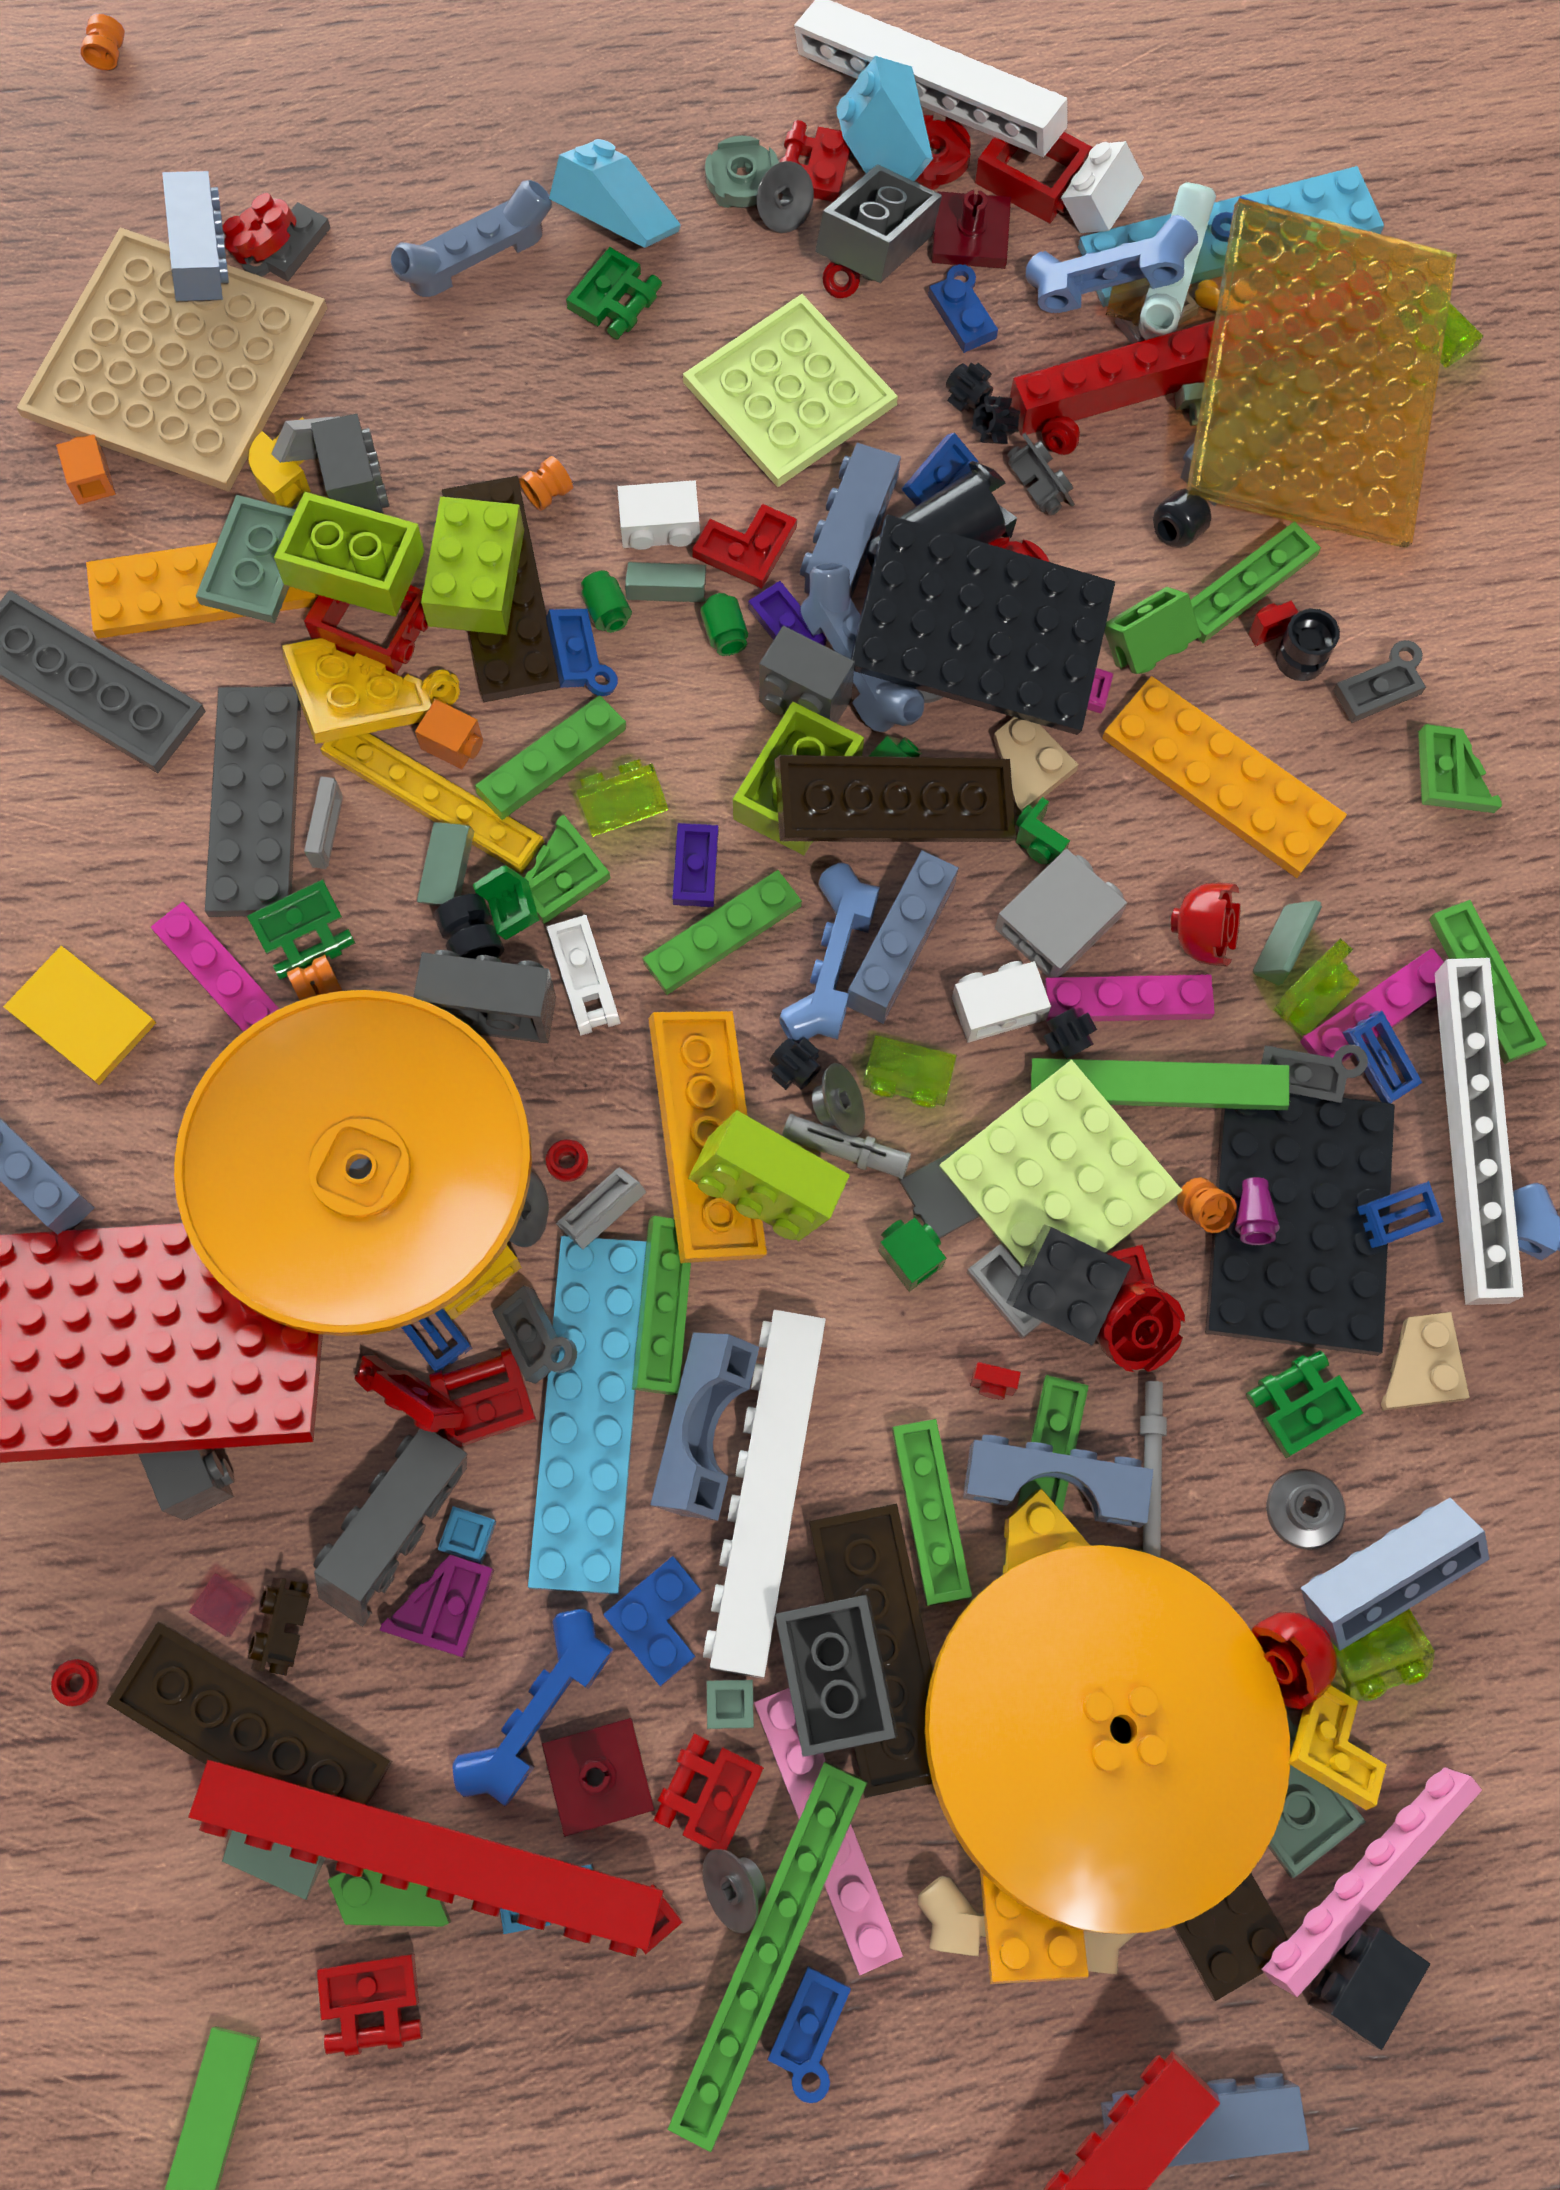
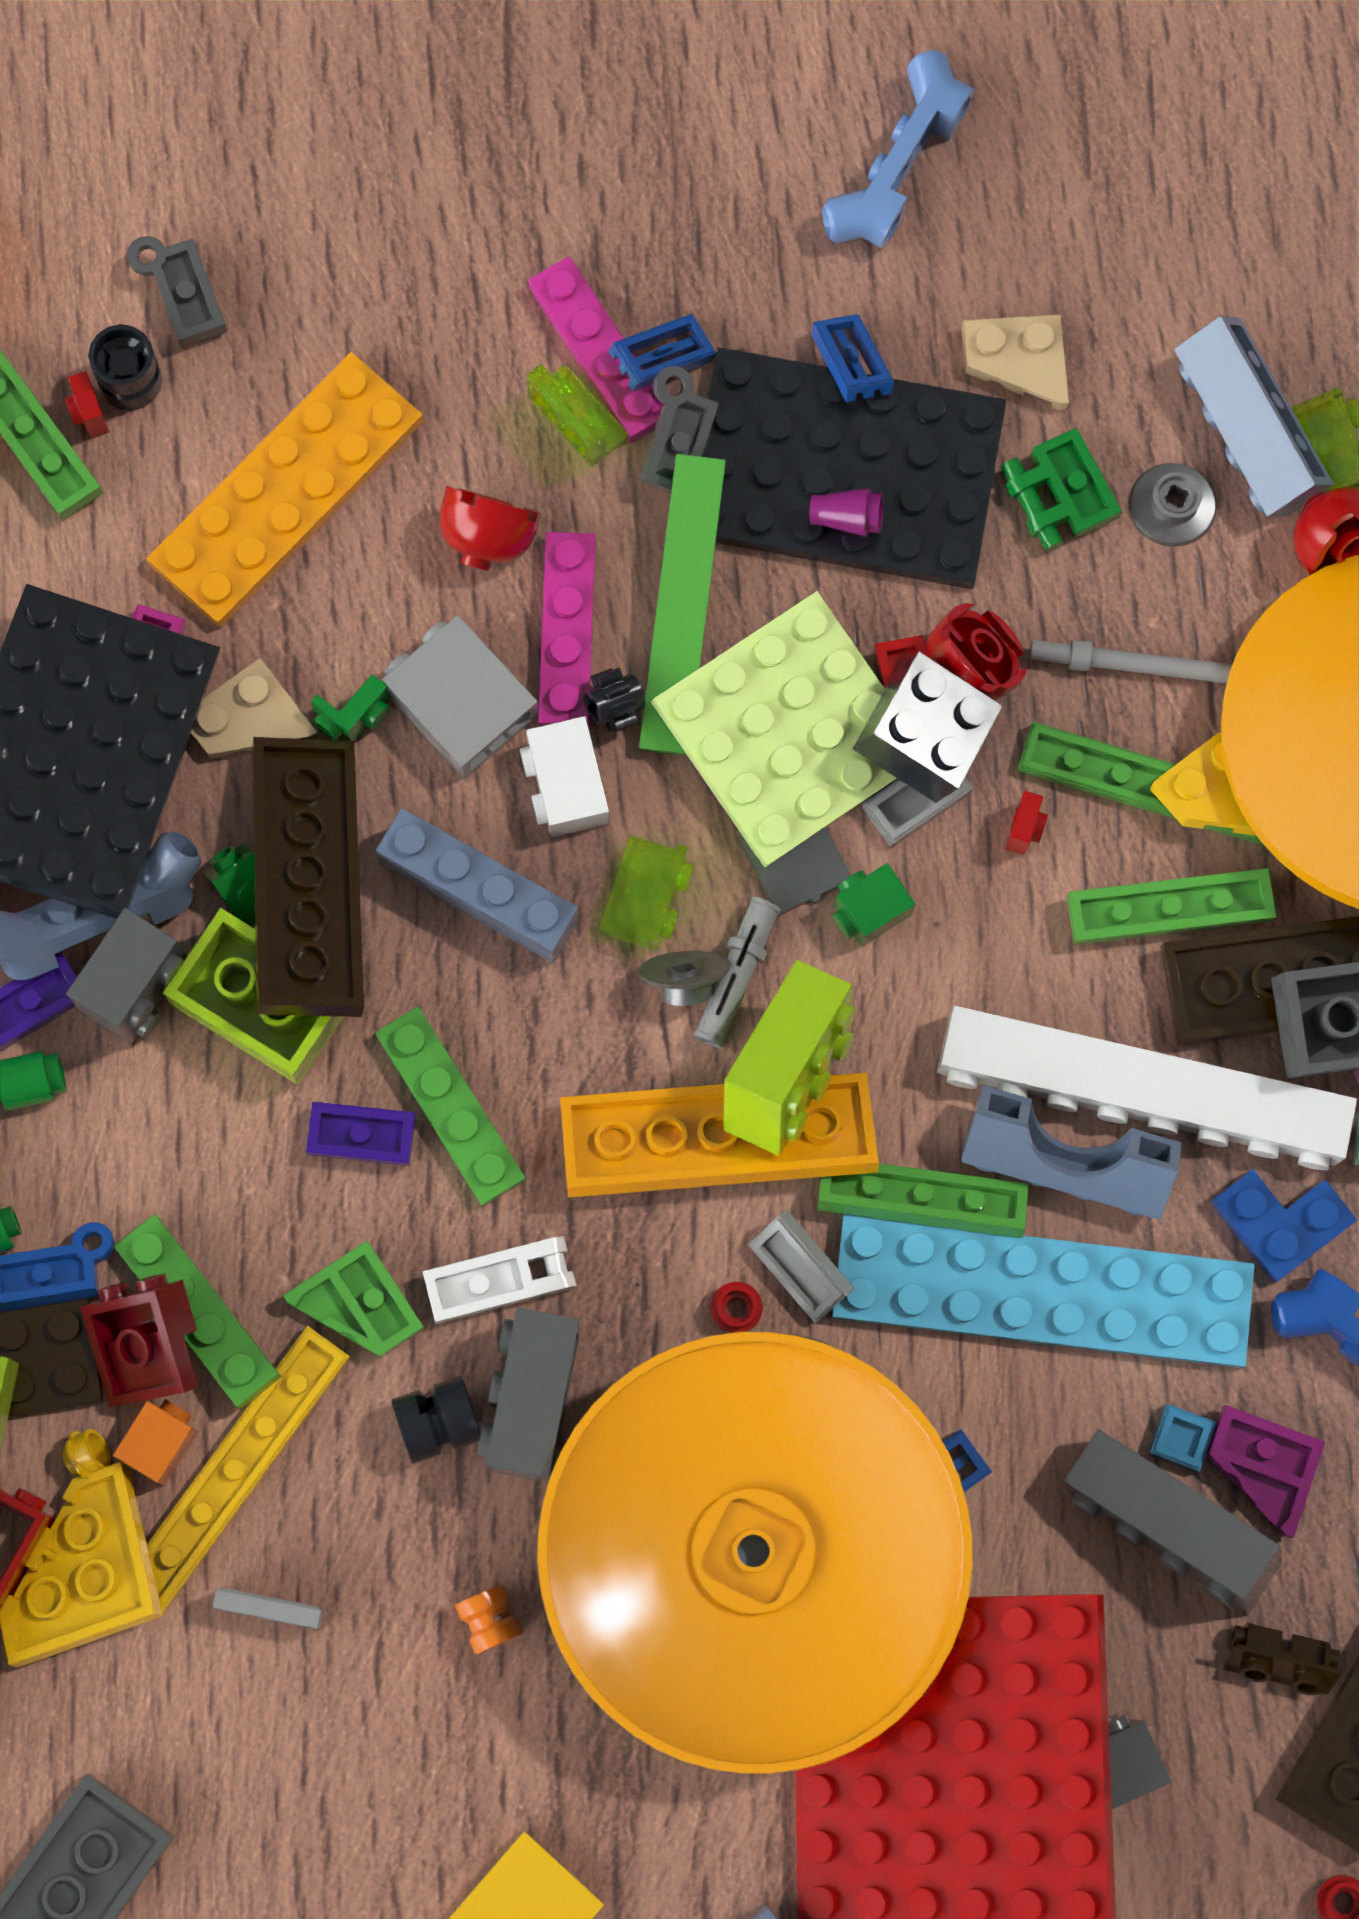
camera: 90 degrees left, 5 degrees up
(213, 967) = (464, 1747): dark pink plate -> none
(222, 1605) = (1256, 1728): clear pink plate -> none
(253, 799) = (223, 1705): dark grey plate -> none
(297, 917) = (404, 1643): green plate -> none
(409, 1394) = (1024, 1499): red hinge -> none
(445, 863) = (340, 1450): sand green slope -> none
(491, 1409) = (1040, 1409): red plate -> none
(508, 901) = (404, 1365): green bracket -> none
(530, 708) = (141, 1339): none -> dark red plate
(532, 1336) = (958, 1350): dark grey hinge -> none
(620, 798) = (260, 1224): clear neon green bracket -> none
(795, 1063) = (633, 1024): black gear -> none
(826, 1007) = (431, 942): medium blue plate -> none
(1115, 1490) = (1136, 821): sand blue arch -> none
(1152, 630) = (89, 548): bright green brick -> none
(1207, 1205) = (837, 563): orange wheel -> none
(1286, 941) = (508, 440): sand green slope -> none
(1451, 771) = (303, 225): bright green wing -> none
(1466, 937) = (573, 224): bright green plate -> none
(1478, 1132) = (764, 258): white brick -> none

